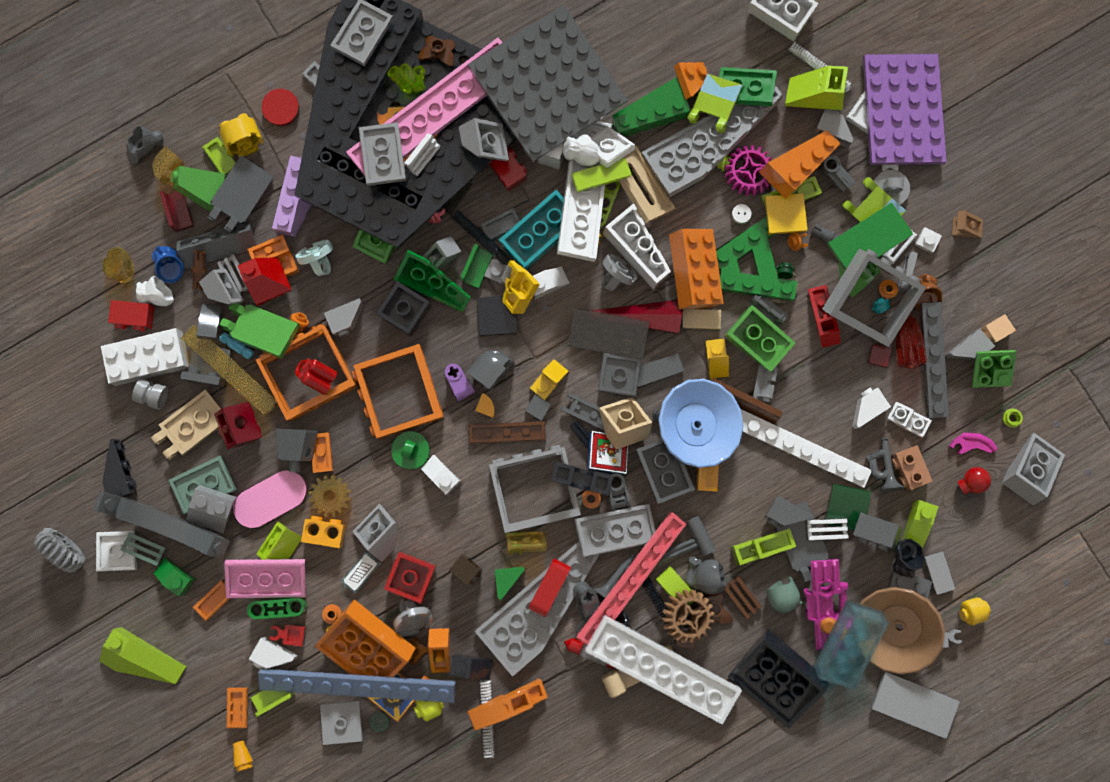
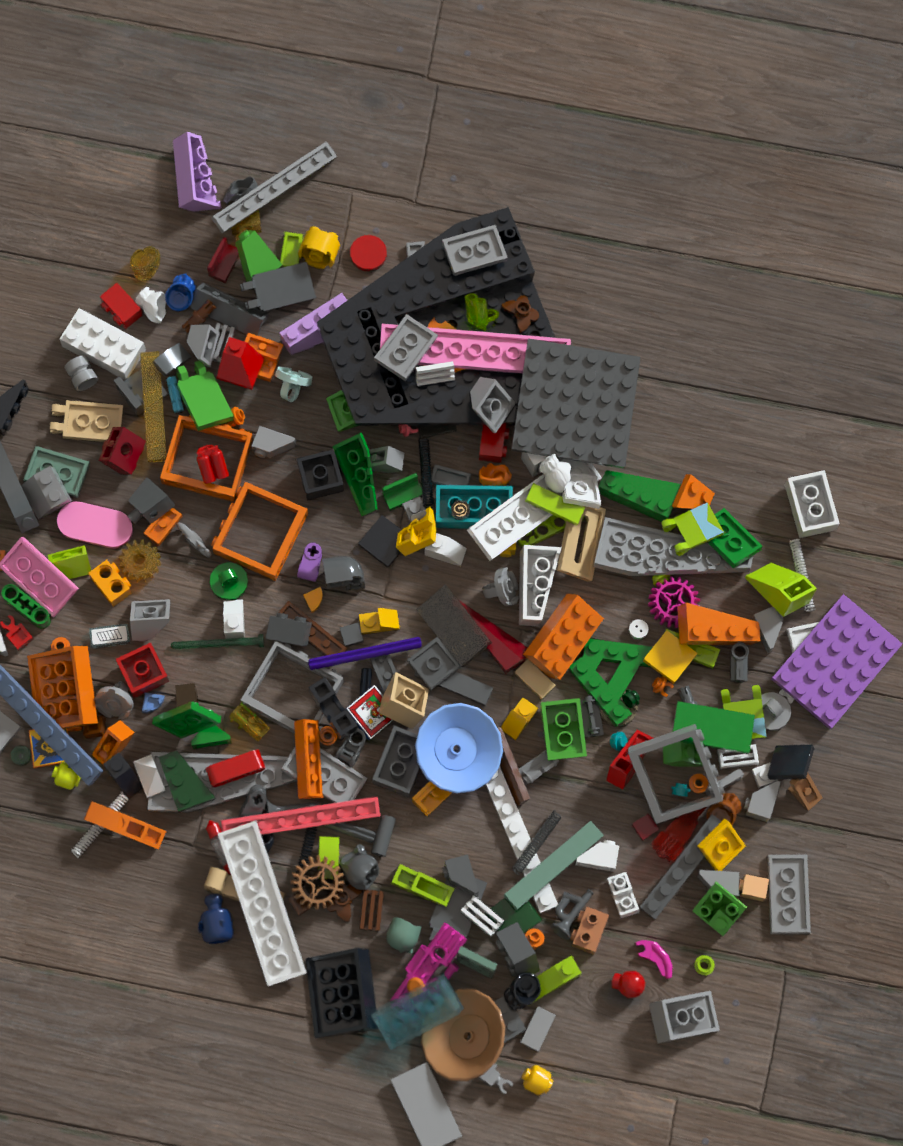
camera: 35 degrees right, 10 degrees down
(90, 164) = (193, 174): none -> lavender wedge
(161, 119) = (274, 187): none -> light grey plate
(358, 443) = (194, 540): none -> light grey piece
(439, 592) = (152, 702): none -> medium blue tile
(447, 502) = (219, 643): none -> clear green bar
(481, 586) = (186, 720): none -> green plate
(490, 447) = (288, 630): none -> dark grey brick
(490, 651) = (149, 776): none -> white slope
(522, 633) = (184, 783): none -> dark green wing
(533, 193) = (494, 475): none -> orange hair
(535, 242) = (460, 510): none -> tile
(563, 414) = (364, 653): none -> dark purple axle
(596, 532) = (308, 759): none -> orange slope
(640, 712) = (216, 922): none -> dark blue piece
(804, 310) = (618, 741): none -> teal plate
(817, 439) = (534, 840): none -> dark grey piece
(843, 445) = (553, 865): none -> sand green tile
(861, 569) = (476, 962): none -> sand green tile
(879, 510) = (535, 938): none -> orange plate
(942, 213) = (790, 762): none -> black tile
(946, 260) = (762, 802): none -> light grey slope
(949, 320) = (721, 845): none -> yellow tile
(1024, 310) = (788, 894): none -> light grey tile

